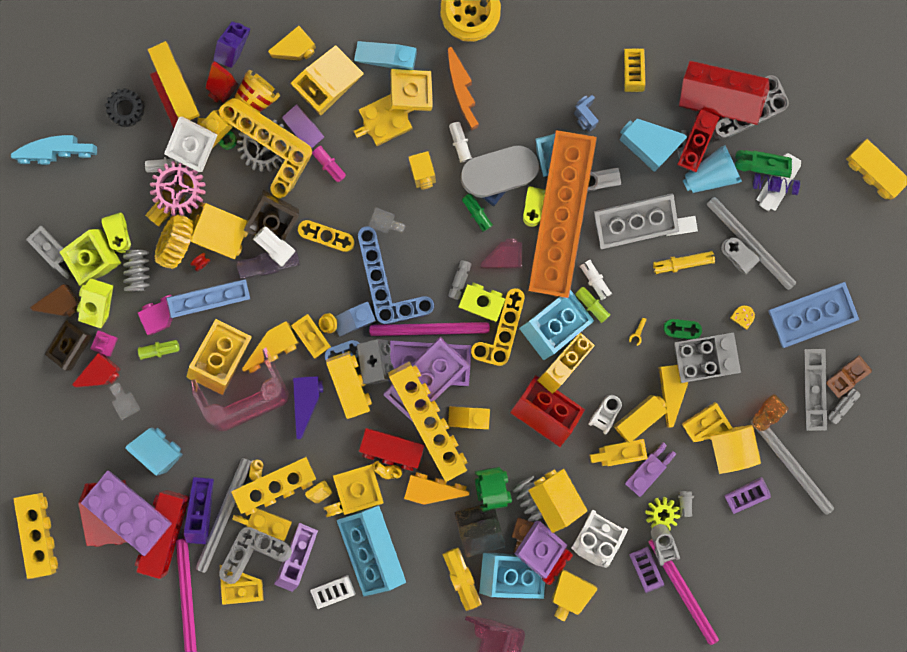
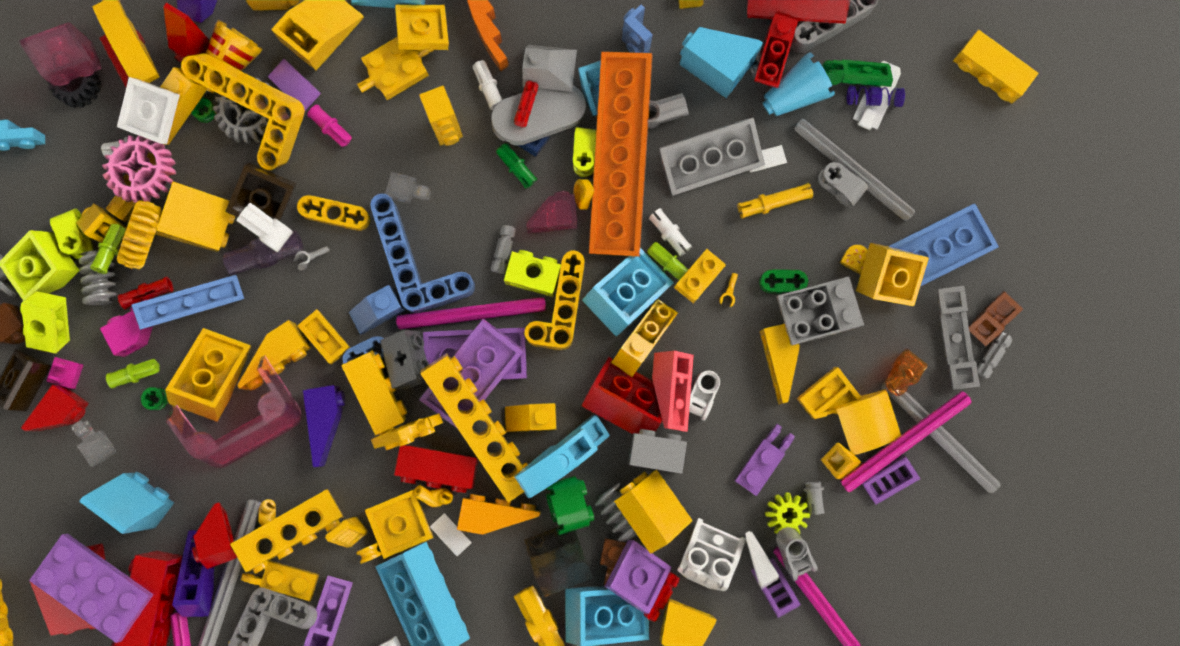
camera: 10 degrees left, 5 degrees down
(123, 90) = (61, 54): none -> clear pink slope
(140, 227) = (96, 222): none -> yellow slope
(149, 250) = (108, 249): none -> lime axle
(172, 286) = (145, 291): none -> red pin
(179, 368) = (160, 393): none -> green bush
(200, 262) = (178, 259): red bush -> none
(216, 486) = (214, 539): none -> red slope
(302, 270) = (307, 257): none -> light grey hand
(328, 323) = (343, 318): yellow plate -> none
(372, 419) = (407, 433): none -> yellow plate
(397, 502) = (448, 533): none -> white sticker
(490, 164) = (526, 104): none -> red axle
(491, 452) = (563, 457): none -> medium azure slope
(512, 133) = (549, 67): none -> light grey slope
(529, 241) = (583, 193): none -> yellow tile
(566, 456) = (657, 452): none -> light grey slope
(583, 405) = (673, 387): none -> coral slope
(615, 319) = (700, 276): none -> yellow plate
(620, 453) = (725, 443): yellow hinge -> none
(638, 553) = (763, 568): none -> white slope
(641, 418) = (746, 395): yellow brick -> none
(709, 477) = (840, 461): none -> yellow slope
(763, 467) = (906, 441): none -> dark pink axle
(769, 334) = (892, 274): none -> yellow slope

